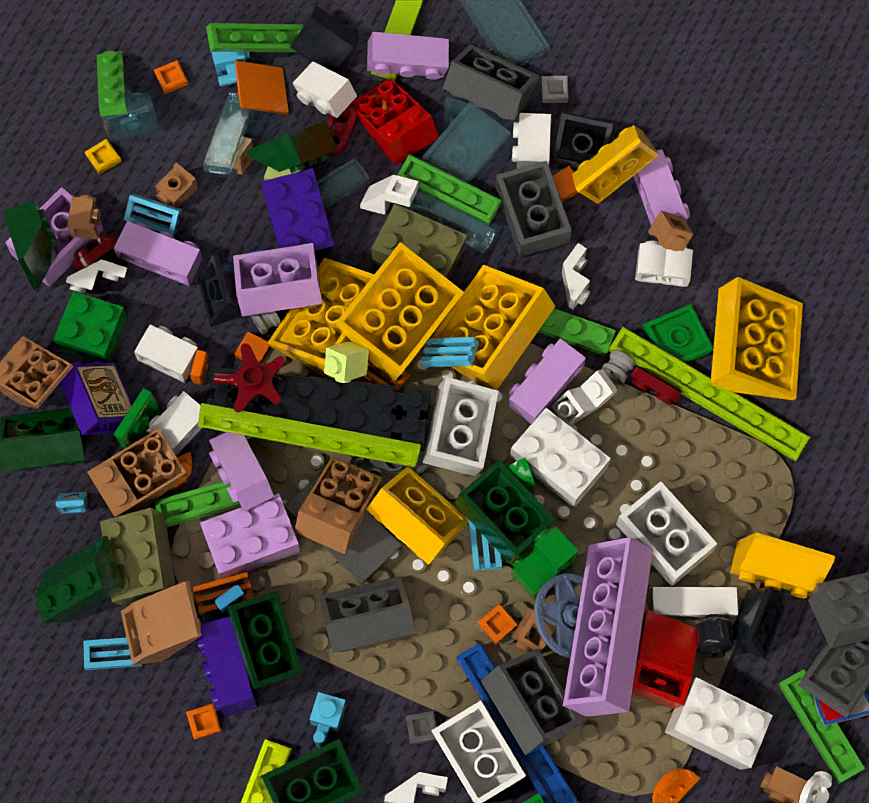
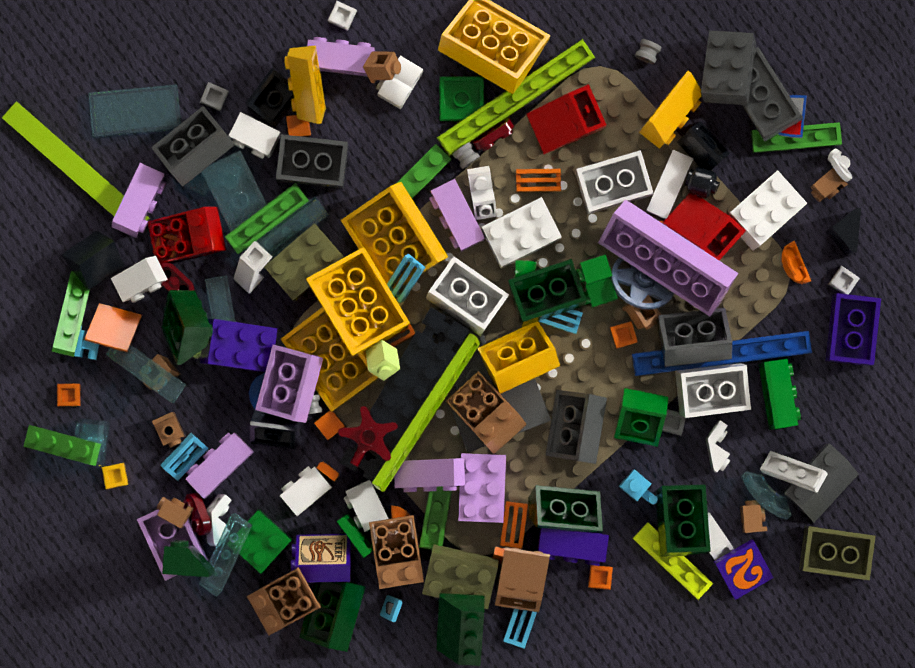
camera: 75 degrees left, 15 degrees up
(60, 293) = (226, 553): none -> clear light blue tile
(232, 596) = (527, 522): dark azure tile -> none
(410, 683) = (641, 417): none -> green slope
(575, 284) = (386, 158): white slope -> none
(618, 433) = (519, 180): none -> orange tile
(705, 179) = (342, 15): none -> white tile
(712, 453) = (566, 119): none -> red slope
(833, 513) = (648, 51): none -> light grey wheel

